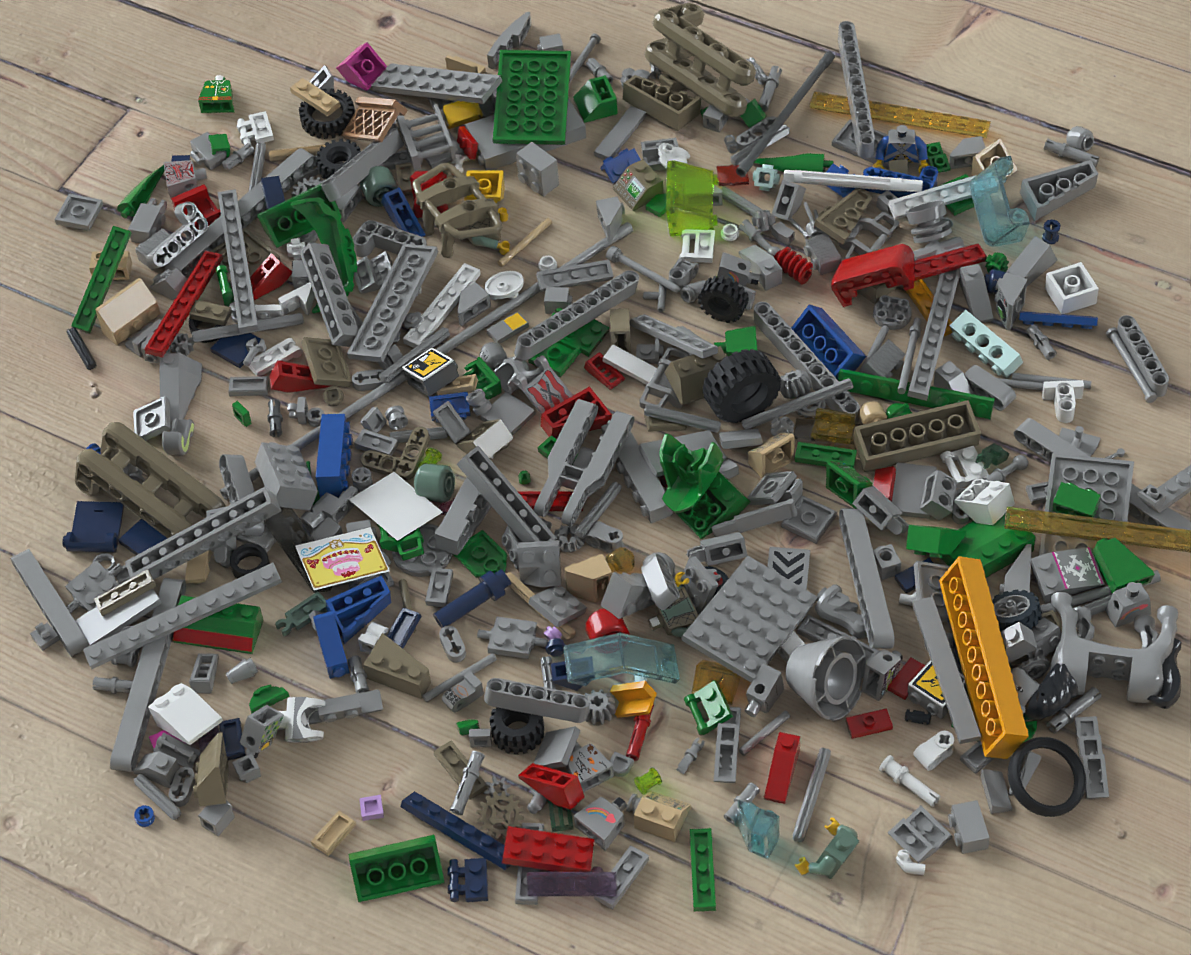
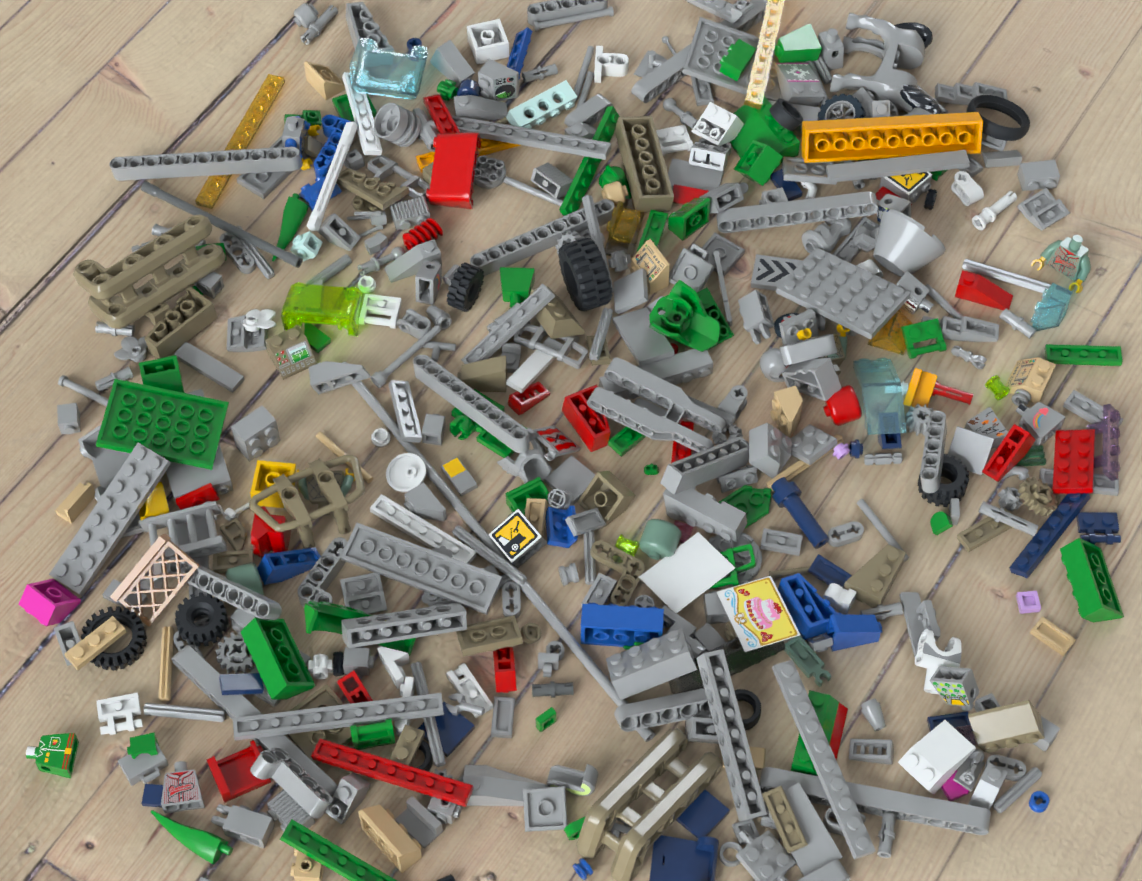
camera: 90 degrees left, 5 degrees up
(238, 156) = (160, 731): light grey axle -> none
(268, 696) = (902, 696): green tile -> none
(373, 420) = (569, 594): light grey tile -> none
(463, 693) = (903, 524): light grey leg -> none
(493, 355) = (500, 484): light grey head -> none
(510, 38) = (43, 454): light grey slope -> none
(512, 637) = (840, 485): light grey plate -> none
(616, 166) = (256, 366): blue bracket -> none
(620, 560) = (761, 393): clear yellow head -> none
(621, 764) = (975, 408): light grey tile -> none
(728, 177) = (288, 275): clear red piece -> none
(732, 140) = (252, 271): light grey piece -> none
(764, 220) = (360, 253): light grey gear -> none
(827, 340) = (521, 217): blue slope -> none
(869, 723) = (935, 226): red plate -> none
(907, 865) = (1072, 220): white arm -> none
(914, 334) = (517, 157): light grey bar -> none
(965, 151) = (303, 93): light grey slope -> none
(992, 454) = (665, 118): clear green plate -> none
(1014, 555) = (786, 114): none -> black tyre

